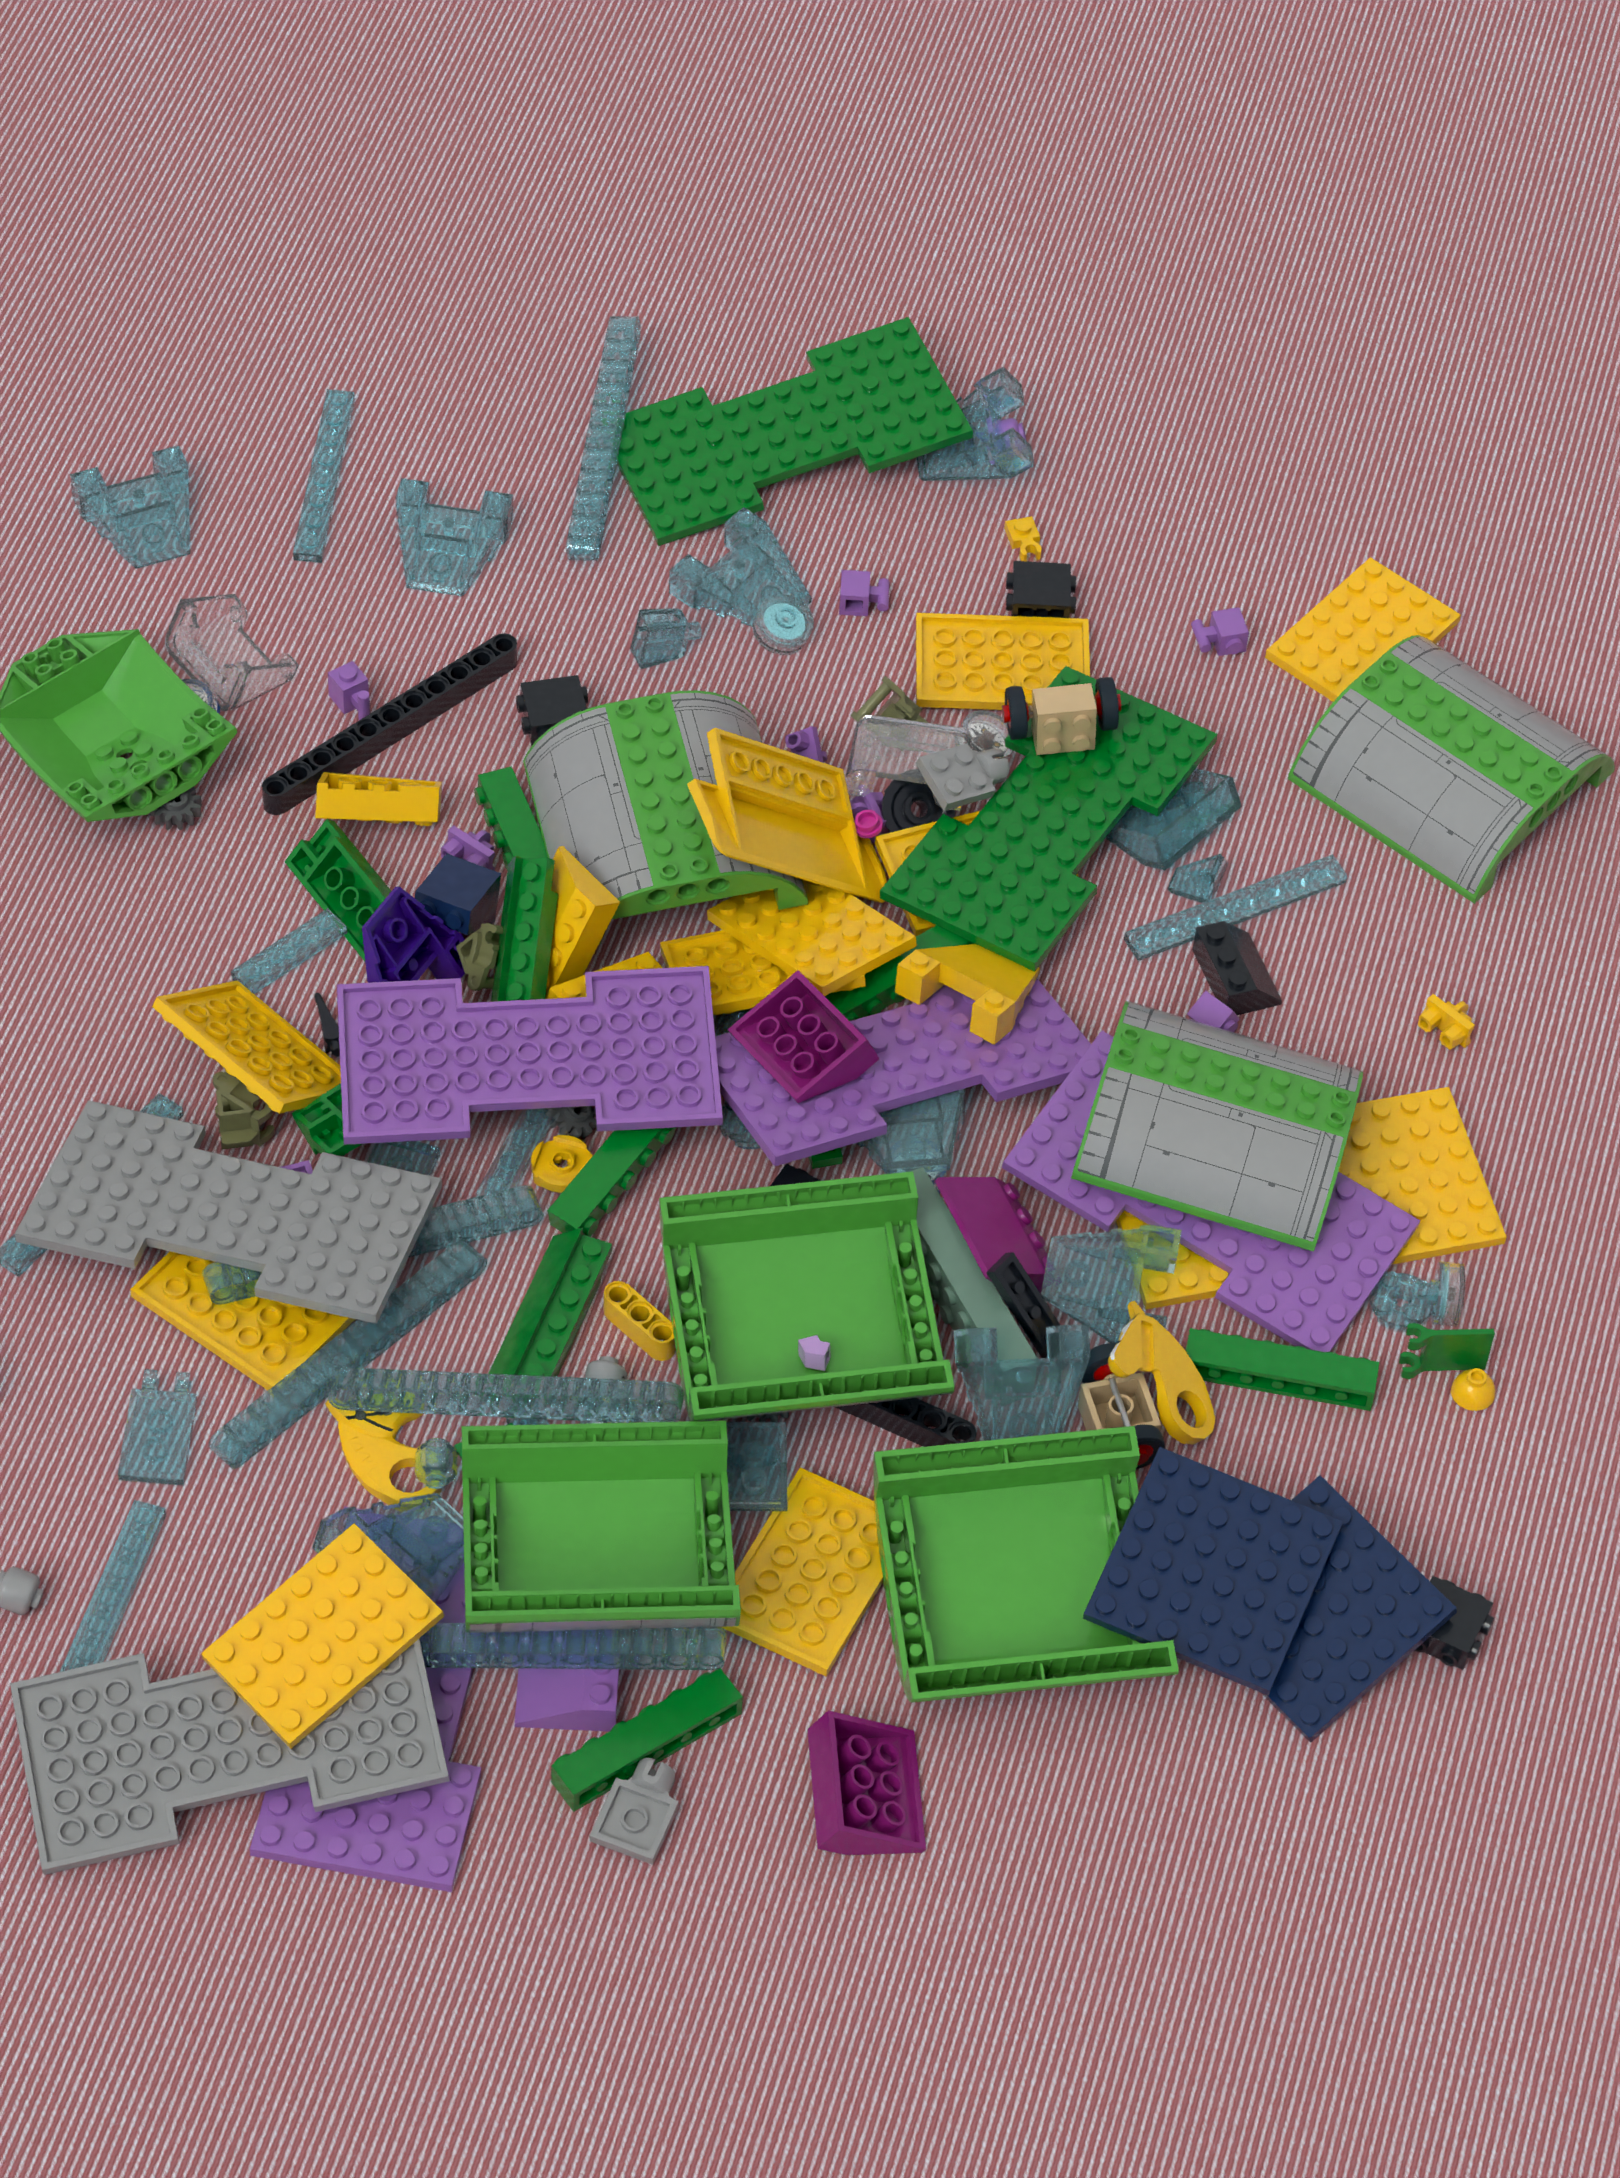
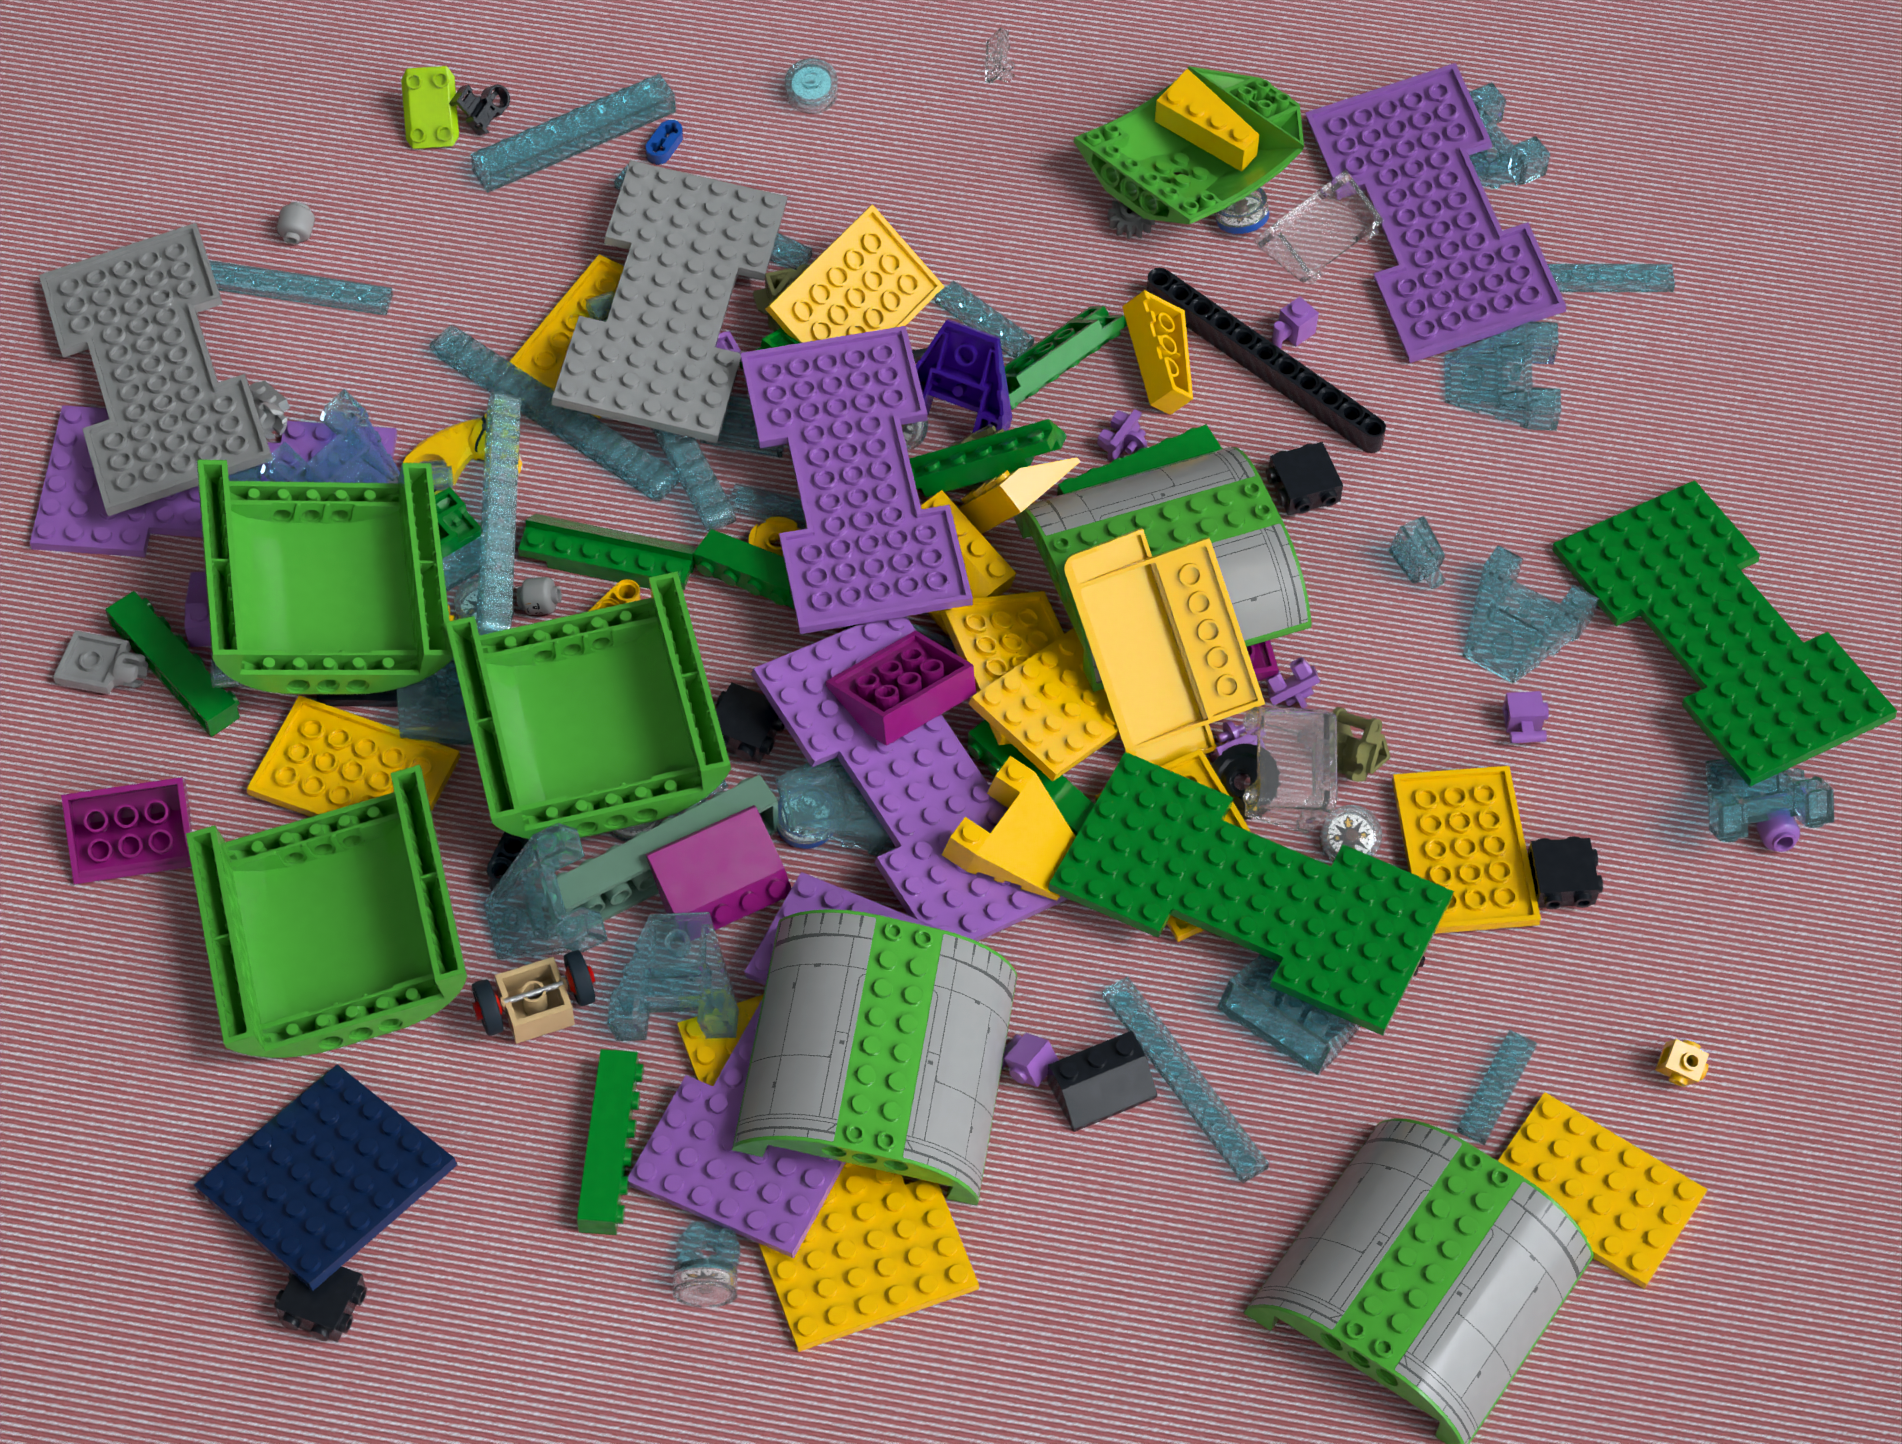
camera: 85 degrees right, 5 degrees up
(77, 708) = (1206, 121): none -> yellow wedge
(158, 1432) = (464, 295): clear light blue tile -> none
(321, 543) = (1455, 265): none -> medium lavender piece
(322, 1635) = (229, 402): yellow plate -> none
(460, 894) = (1042, 400): dark blue slope -> none
(603, 438) = (1664, 478): clear light blue beam -> none
(783, 624) = (1462, 653): clear light blue piece -> none
(814, 1353) = (558, 732): lavender piece -> none
(868, 824) = (1209, 736): dark pink plate -> none
(962, 775) = (1269, 798): light grey plate -> none
(1023, 1300) = (629, 907): black plate -> none
(1024, 535) = (1650, 858): yellow plate -> none
(1062, 715) = (1353, 874): tan brick -> none
(1152, 1348) = (591, 1014): yellow animal -> none
(1199, 879) = (1217, 1047): clear light blue slope -> none
(1213, 1570) = (343, 1074): dark blue plate -> none
(1226, 631) = (1556, 1050): medium lavender brick -> none
(1248, 545) = (1683, 1062): none -> yellow brick
(1256, 685) = (1497, 1087): none -> clear light blue plate
(1445, 1350) = (632, 1265): green flag -> none
(1450, 1019) = (1074, 1272): yellow hips -> none
(1473, 1390) = (608, 1323): yellow brick -> none

